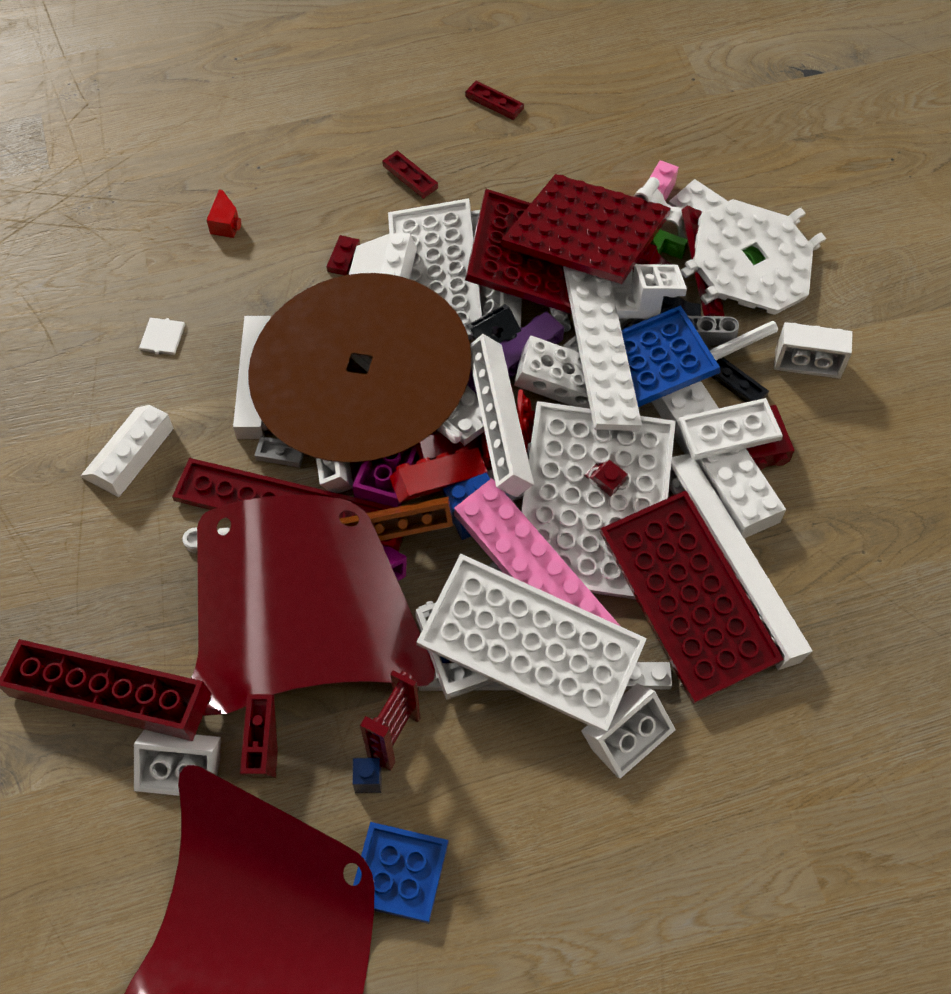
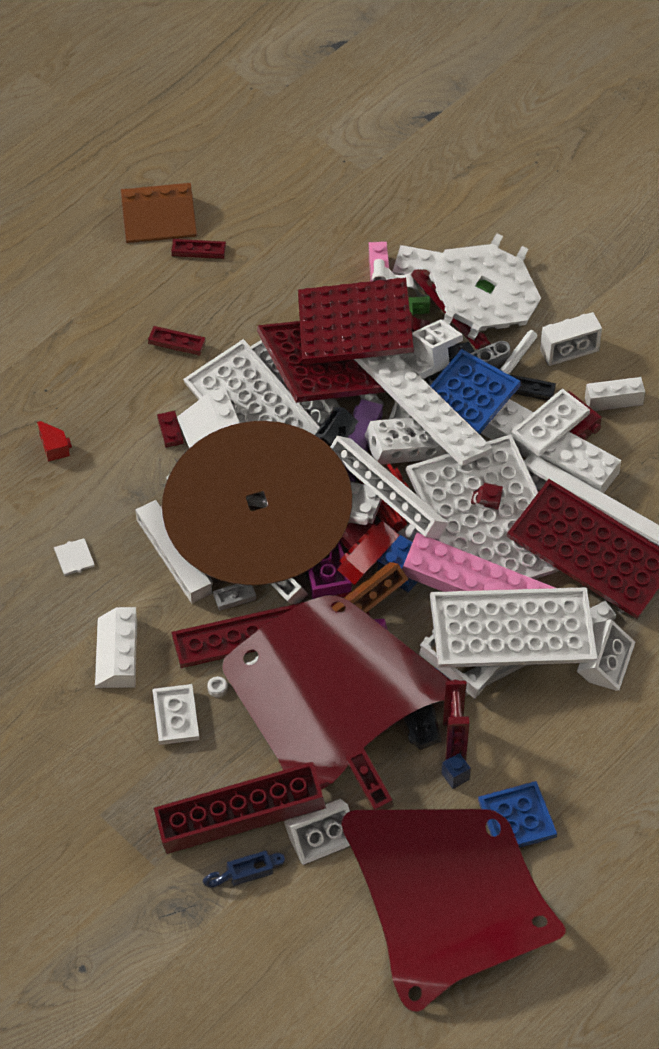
camera: 30 degrees left, 5 degrees down
(67, 760) = (243, 869): none -> dark blue piece
(130, 547) = (175, 714): none -> white plate
(365, 700) = (423, 727): none -> black bracket
(479, 50) = (158, 212): none -> dark orange slope
(827, 432) = (615, 394): none -> white brick

